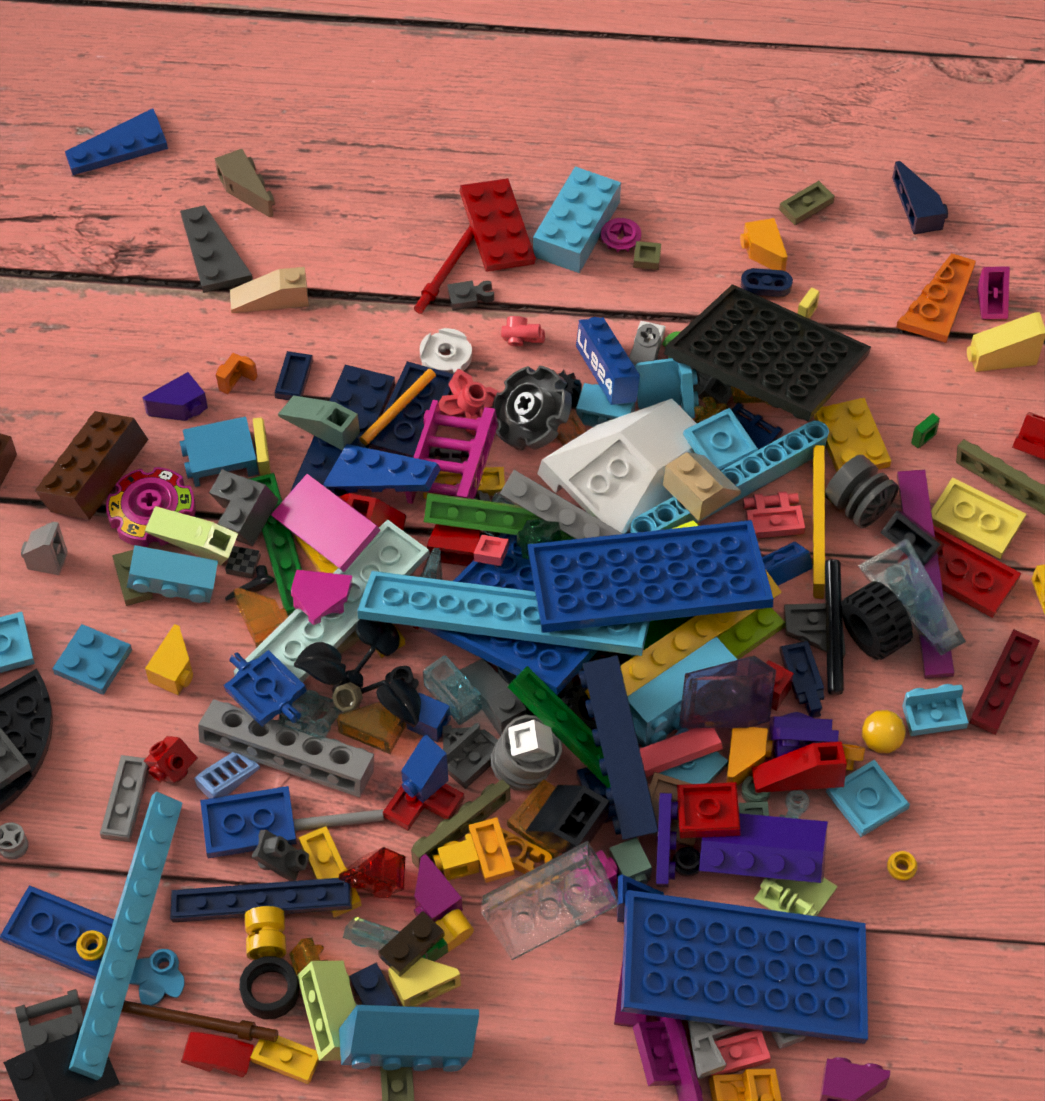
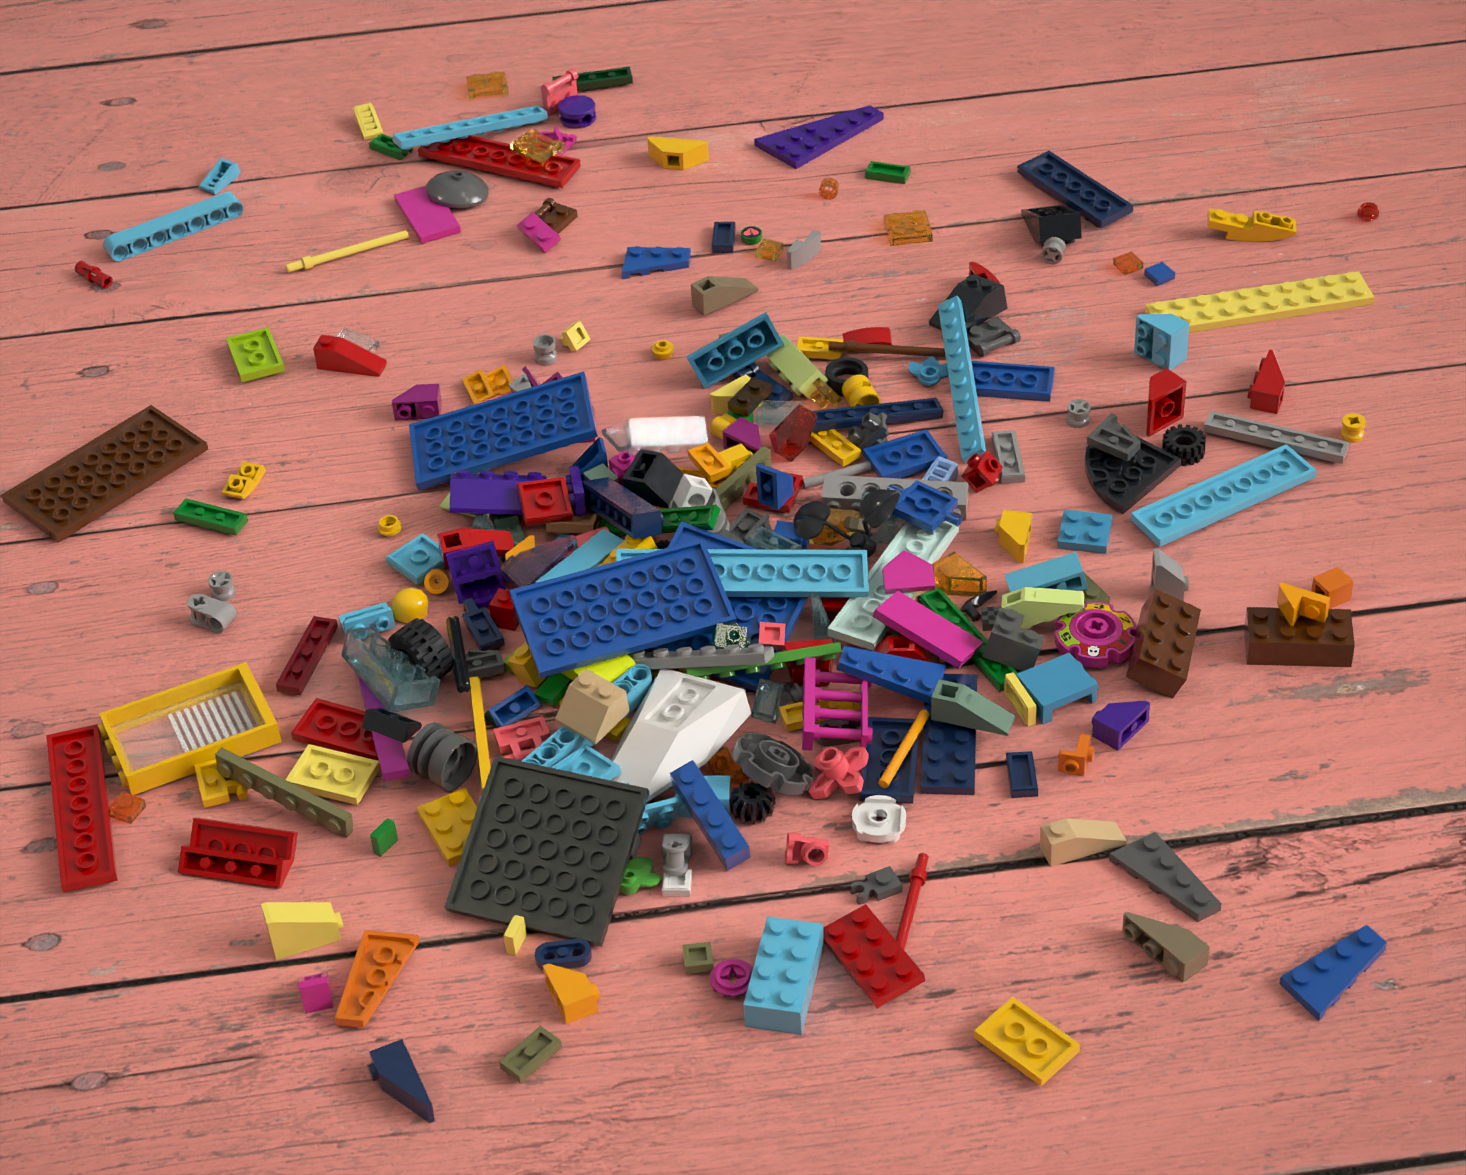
camera: 170 degrees right, 15 degrees down
(88, 938) = (983, 366): yellow plate -> none
(394, 133) = (1026, 1041): none -> yellow plate

